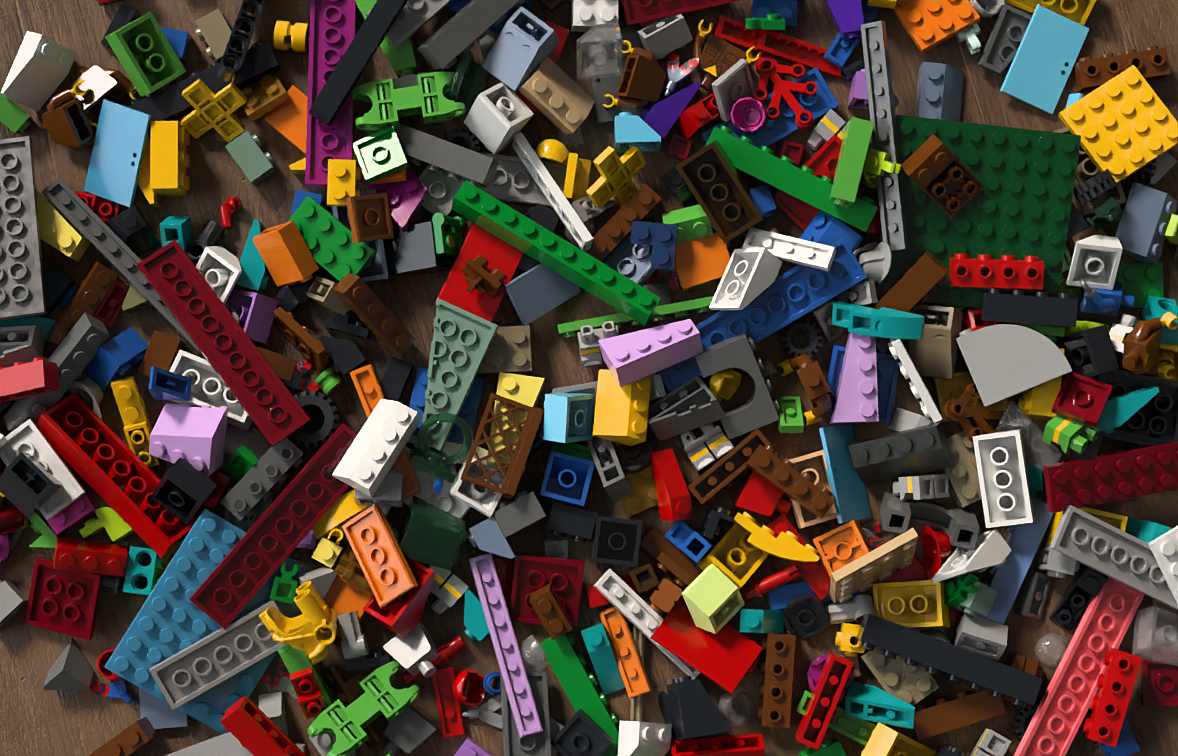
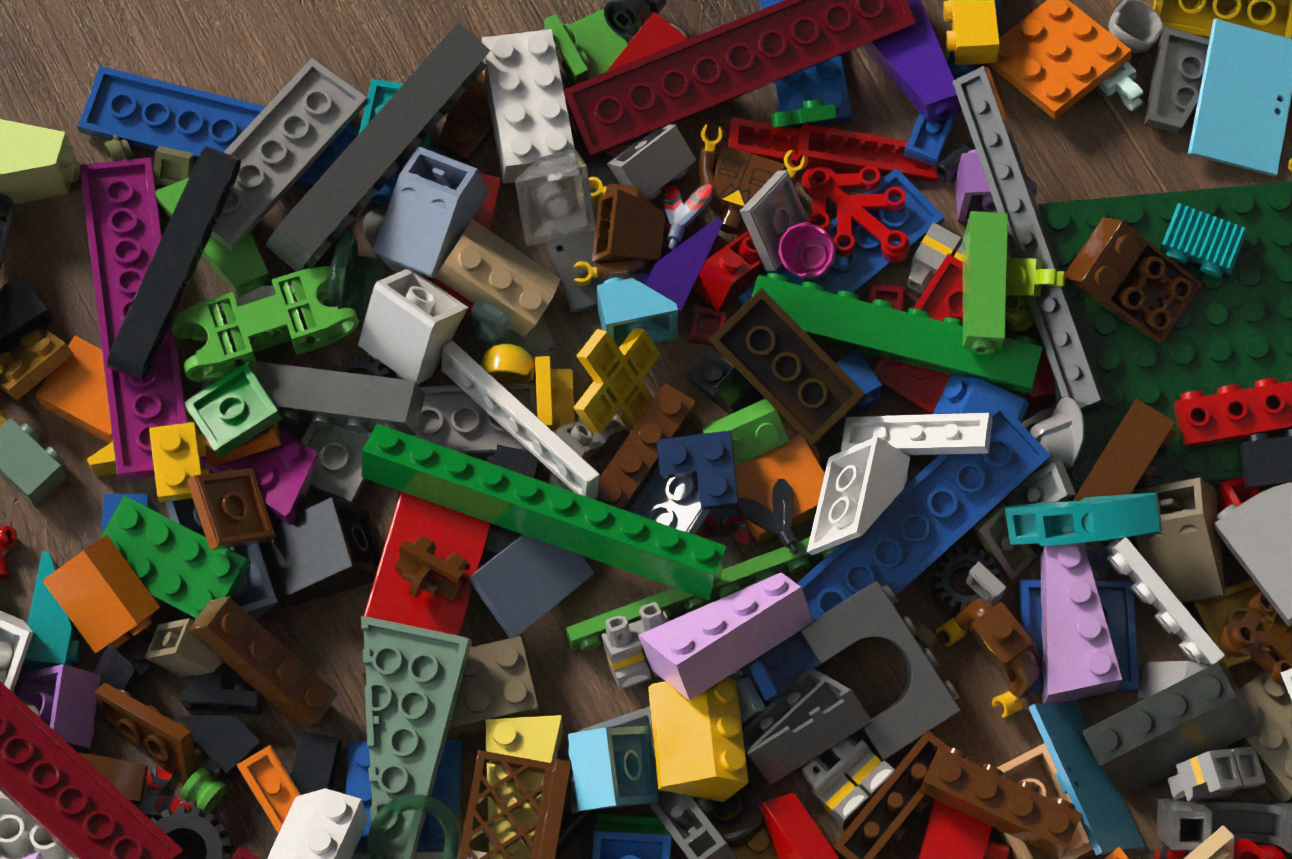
camera: 10 degrees left, 15 degrees down
(297, 41) = (75, 262): yellow wheel -> none
(448, 242) = (366, 529): green plate -> none
(546, 126) = (491, 324): none -> clear light blue plate
(667, 379) = (763, 680): none -> blue tile
(696, 282) = (777, 521): none -> black piece
(724, 383) = (859, 670): yellow hair -> none
(791, 415) = (977, 706): bright green slope -> none
(811, 346) = (985, 584): none -> light grey tile
(939, 92) = (1093, 163): sand blue slope -> none
(991, 161) = (1203, 240): none -> teal brick

